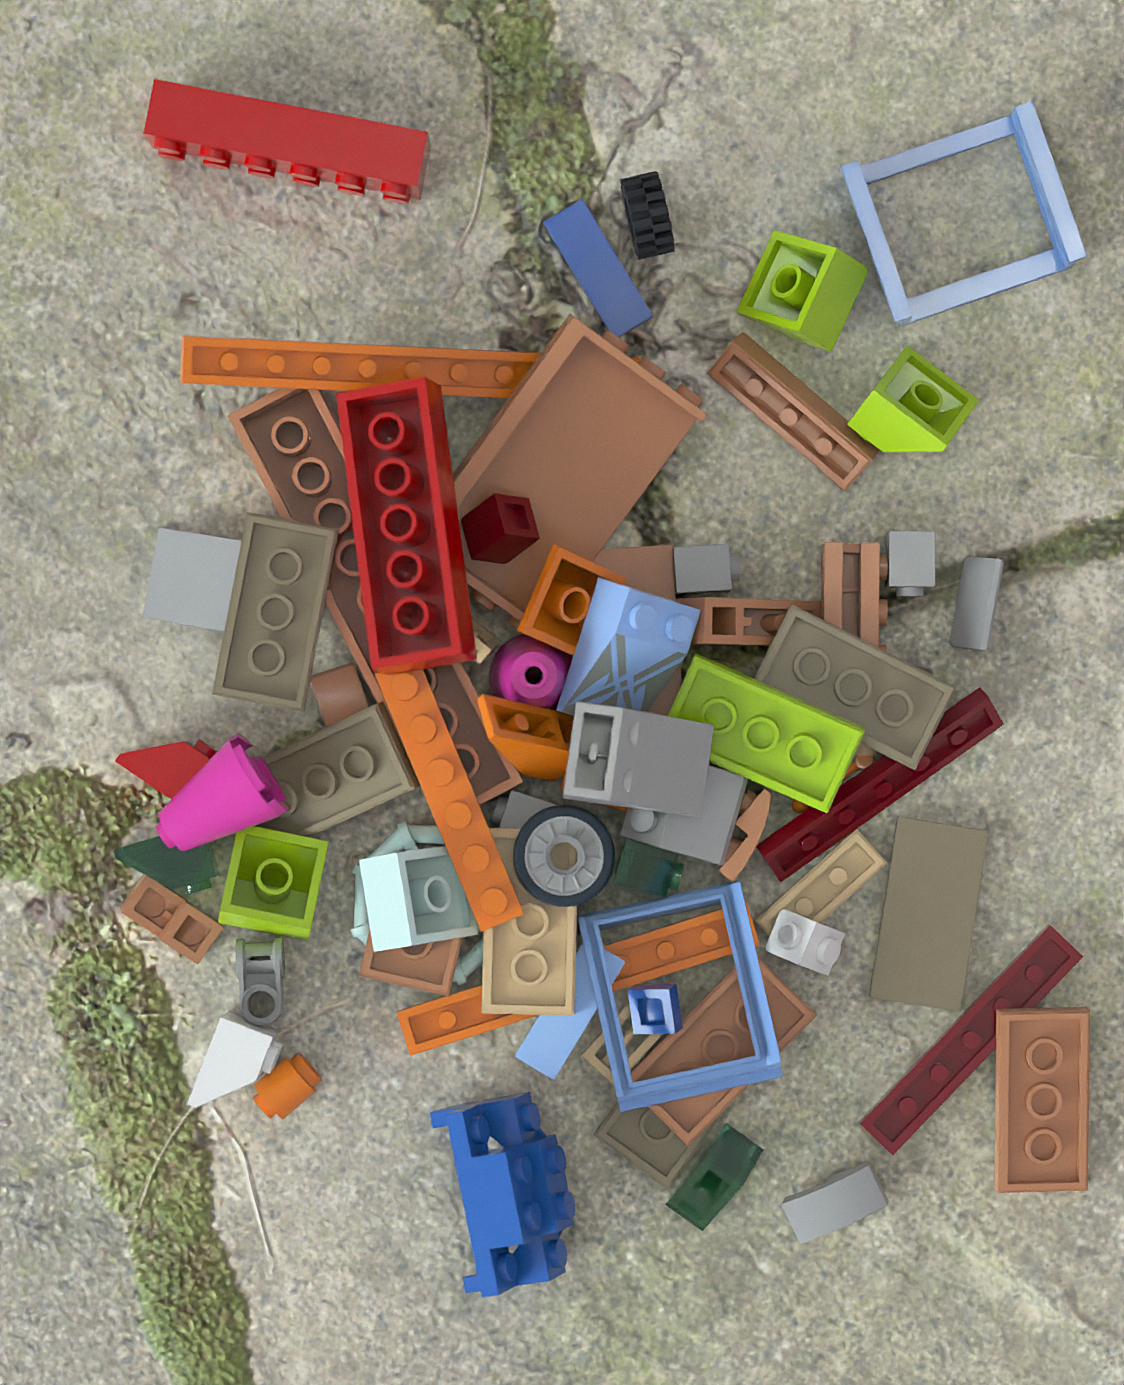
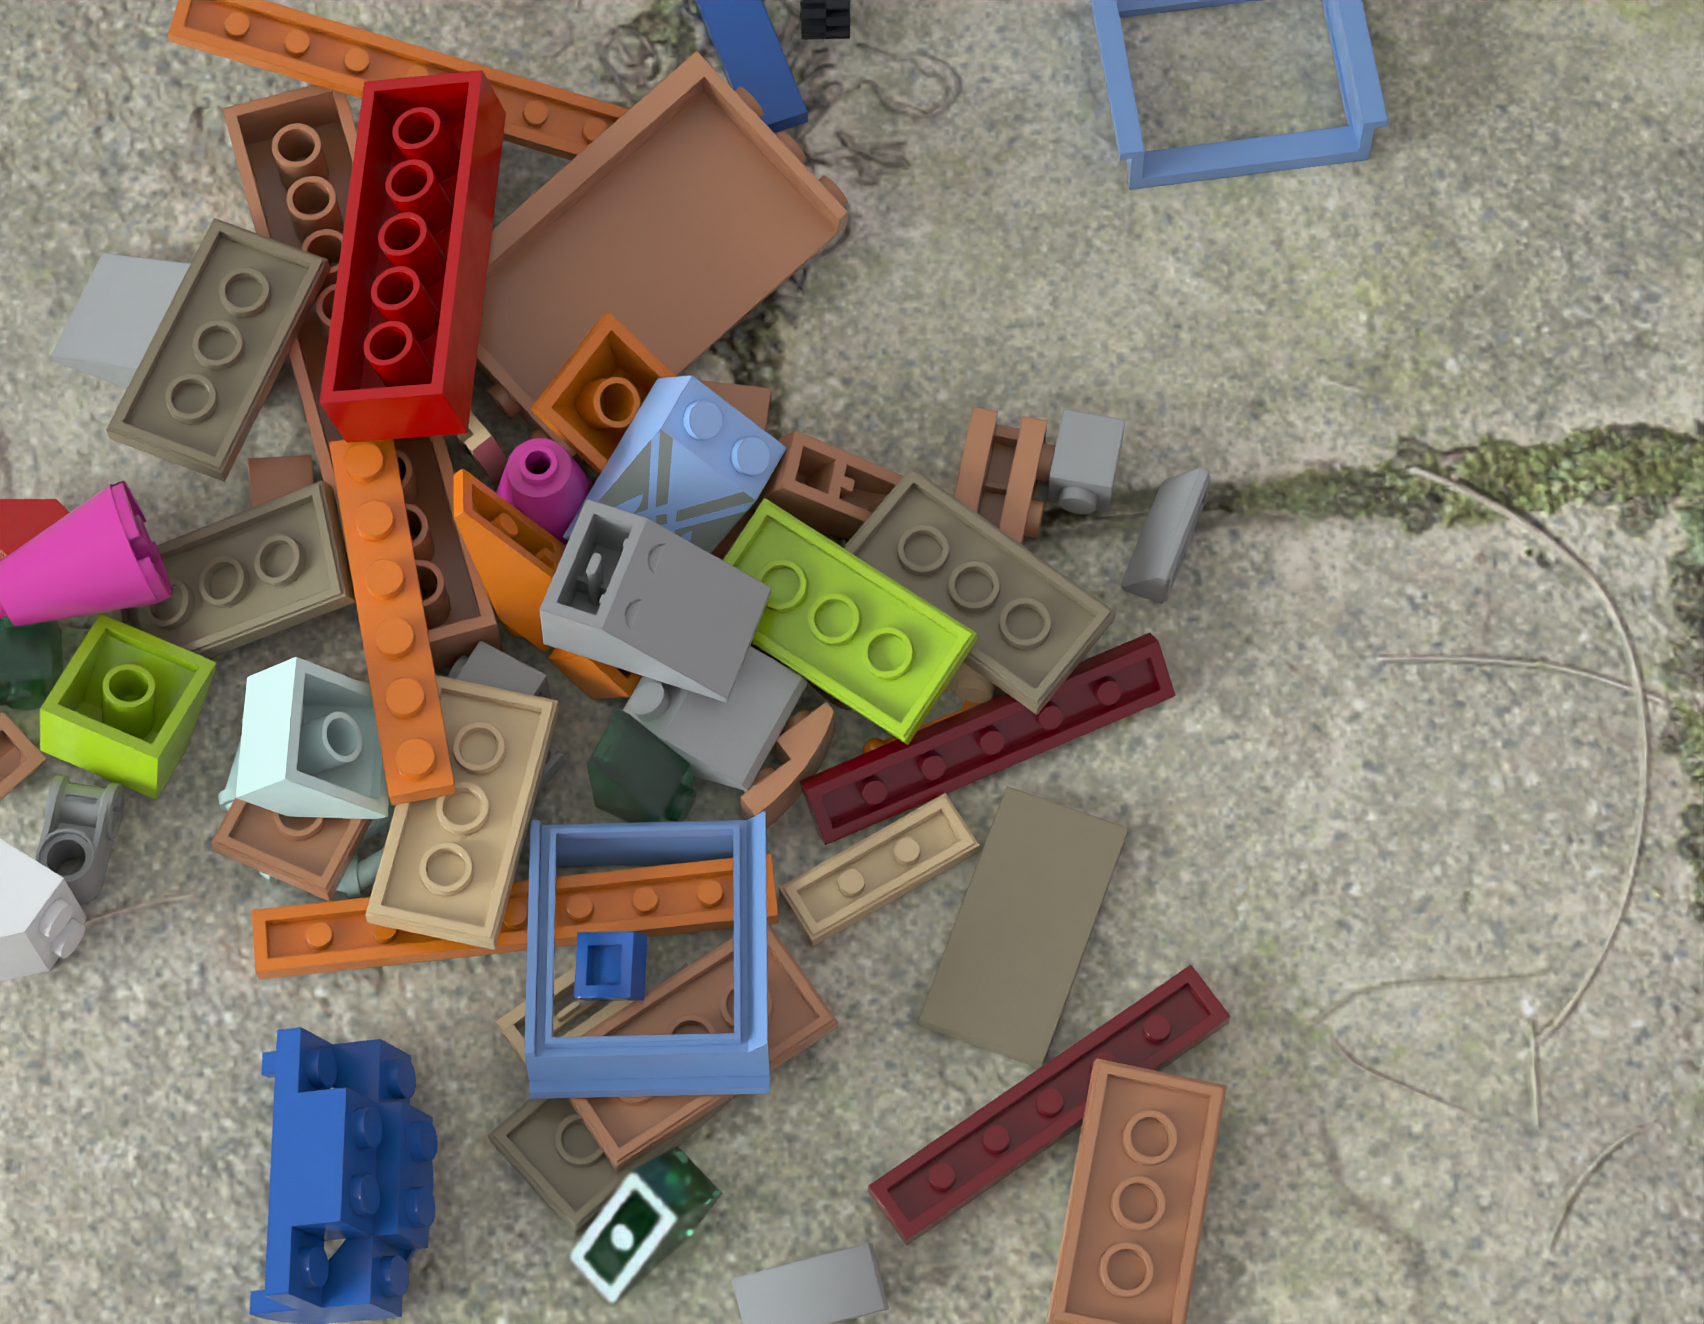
camera: 15 degrees right, 20 degrees down
(286, 1086) = (73, 983): orange brick -> none
(500, 528) = (543, 310): dark red panel -> none
(556, 1035) = (466, 975): light blue tile -> none
(570, 885) = (536, 760): wheel -> none
(704, 569) = (810, 409): light grey brick -> none
(793, 410) = (967, 262): nougat slope -> none
(803, 290) = (1011, 114): lime slope -> none
(805, 942) = (844, 924): white bracket -> none
(913, 407) = (1119, 269): lime slope -> none

